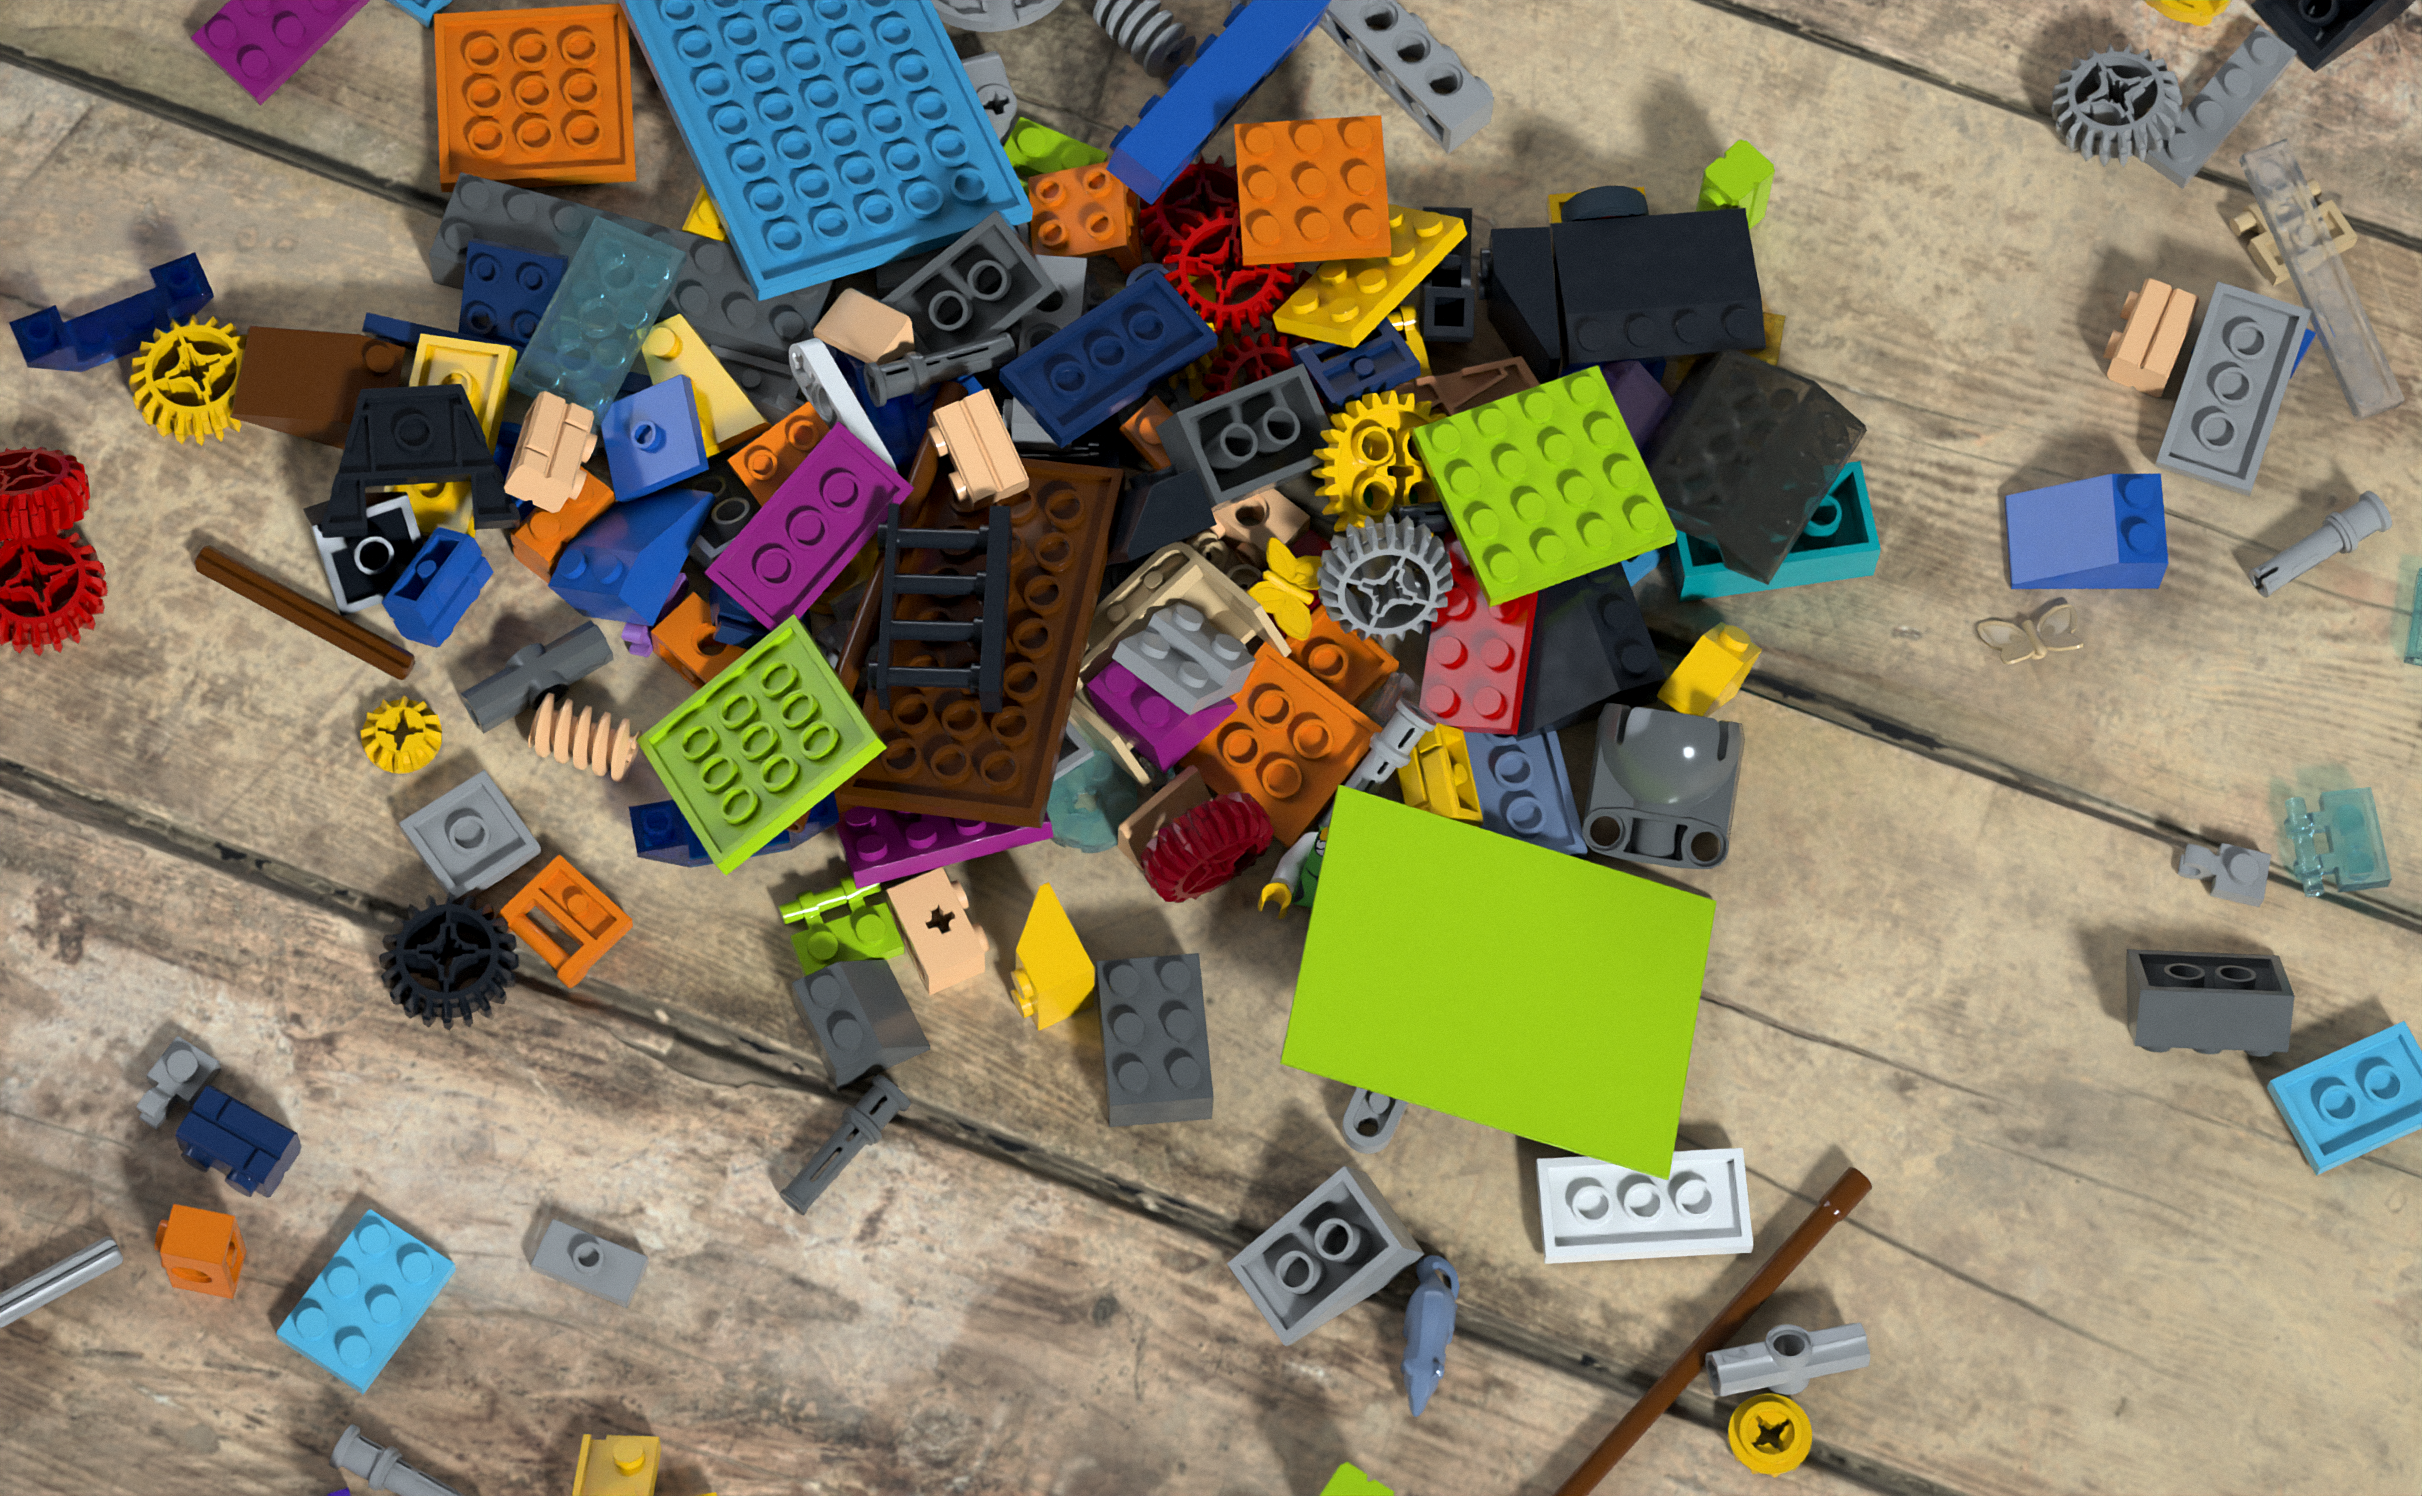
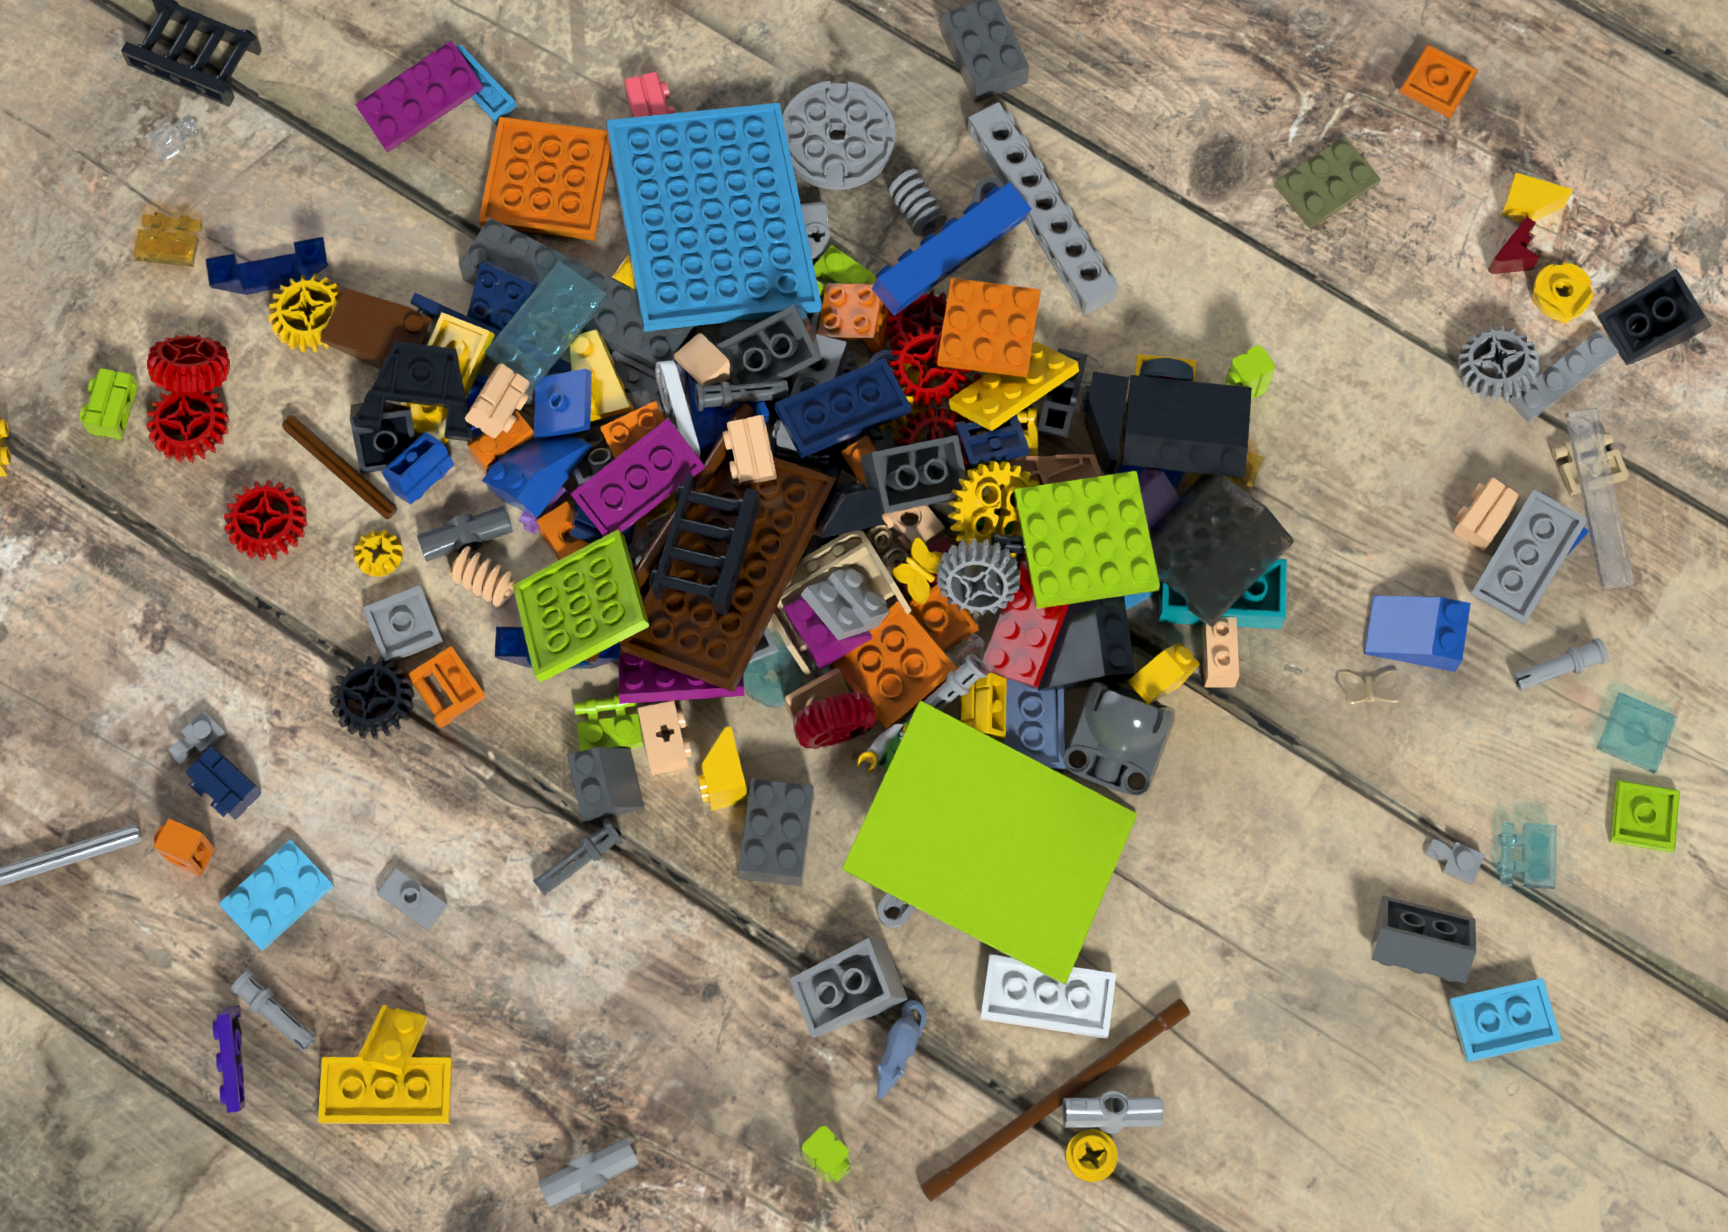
camera: 15 degrees right, 5 degrees up
(166, 718) = (288, 524): none -> red gear
(1789, 628) = (1220, 653): none -> light nougat brick

